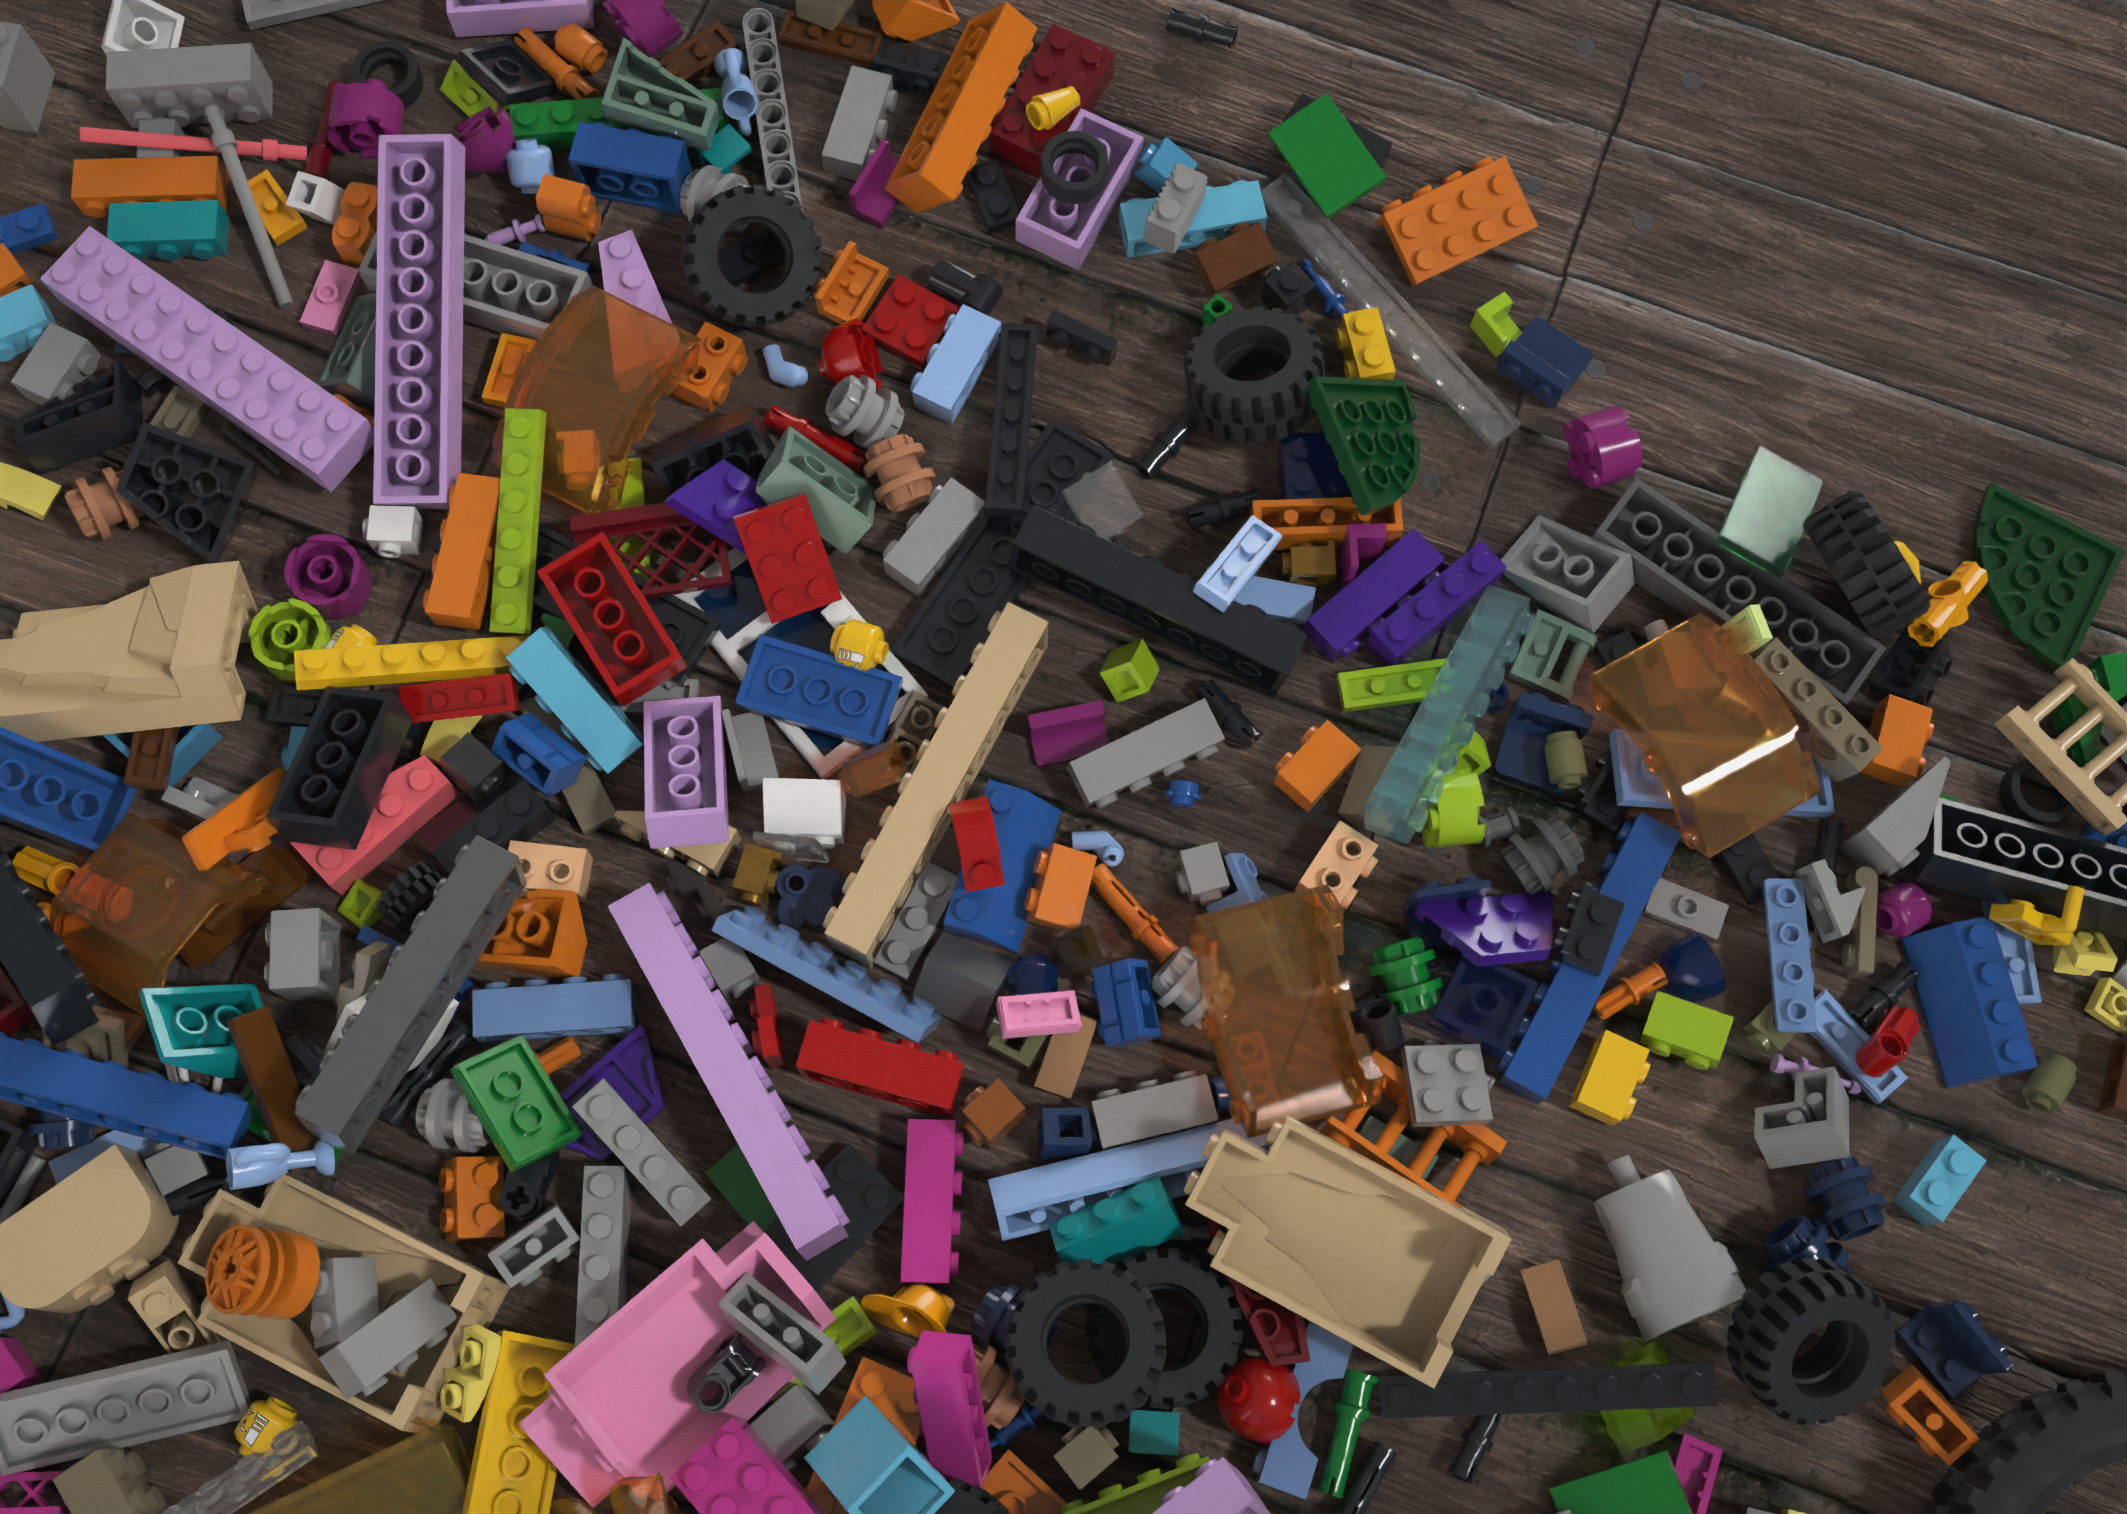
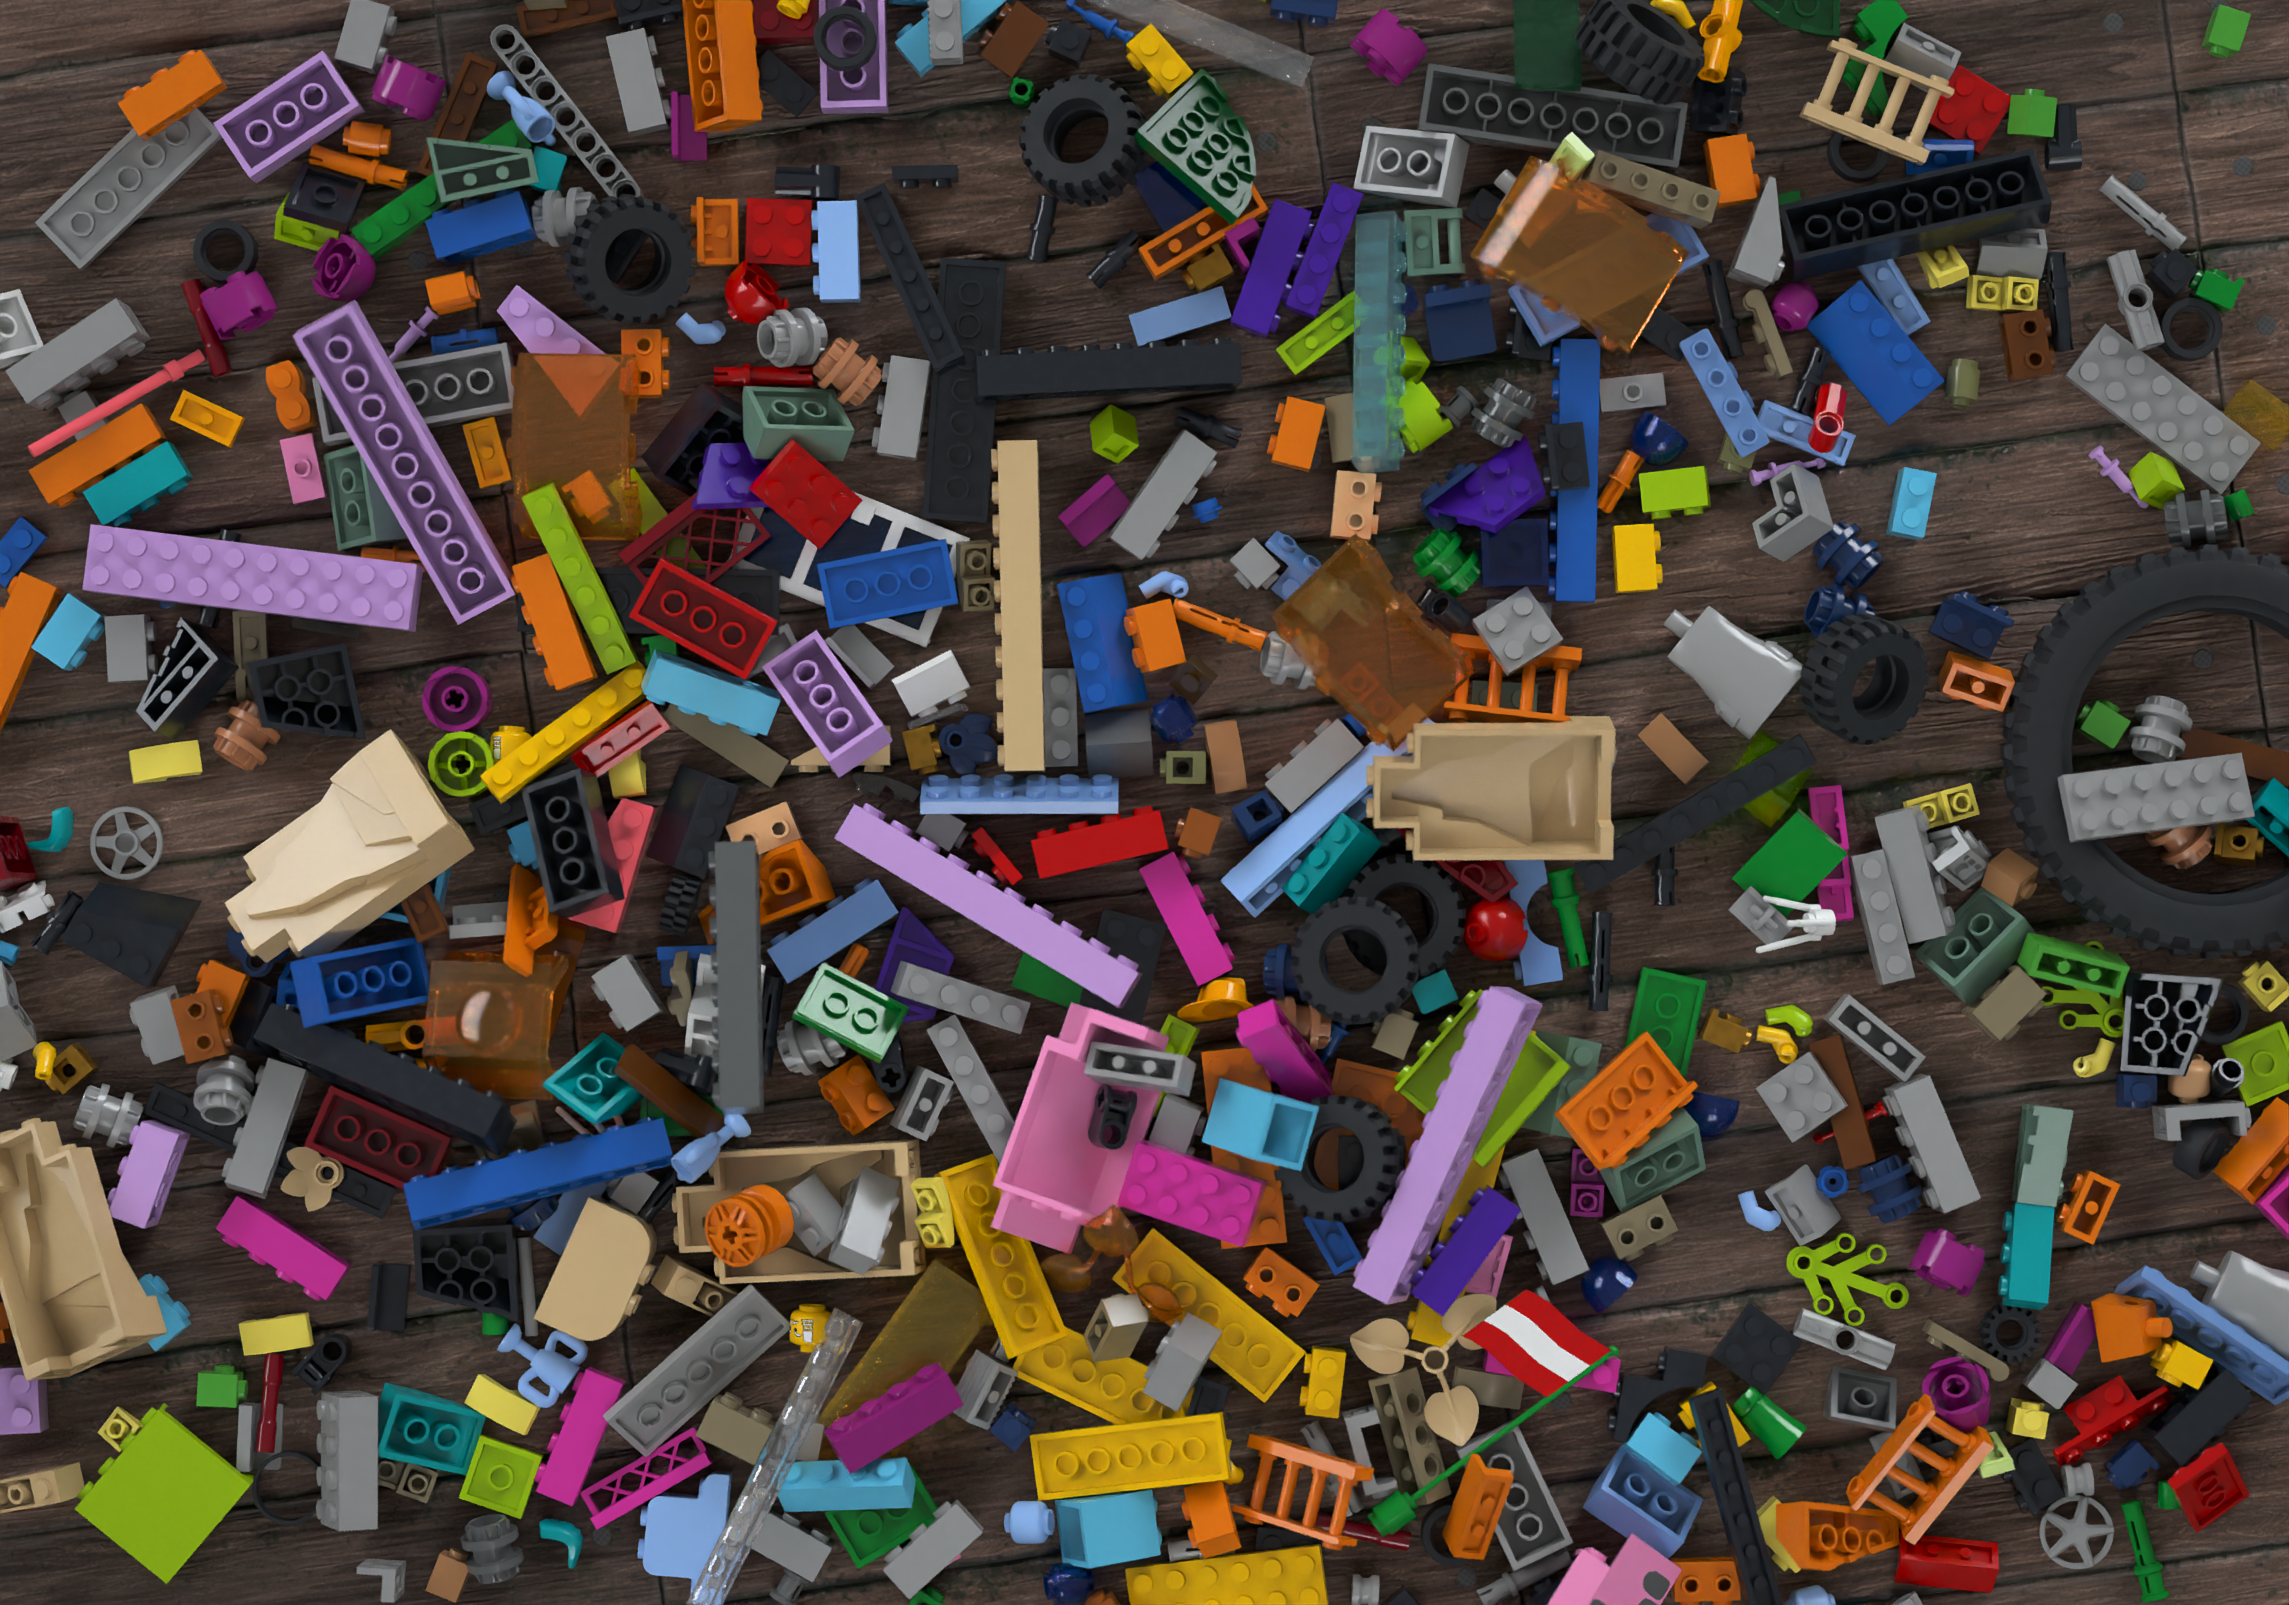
camera: 25 degrees left, 15 degrees up
(226, 143) = (142, 390): light grey bar -> none
(316, 198) = (245, 394): white brick -> none
(361, 904) = (641, 930): lime slope -> none
(393, 530) = (480, 635): white brick -> none
(472, 767) = (665, 787): pearl dark grey brick -> none
(528, 165) = (397, 270): light blue head -> none
(538, 754) = (707, 750): blue brick -> none
(859, 645) = (898, 531): yellow head -> none
(873, 769) = (968, 626): clear orange brick -> none
(977, 843) = (1078, 642): red brick -> none
(1038, 1014) = (1192, 742): bright pink plate -> none
(1103, 501) = (1019, 308): clear piece -> none
(1125, 1003) = (1250, 696): blue brick -> none
(1237, 563) = (1156, 313): light blue tile -> none
(1565, 759) = (1484, 327): olive brick -> none
(1830, 910) = (1739, 340): light grey slope -> none
(2040, 927) = (1903, 266): yellow plate -> none

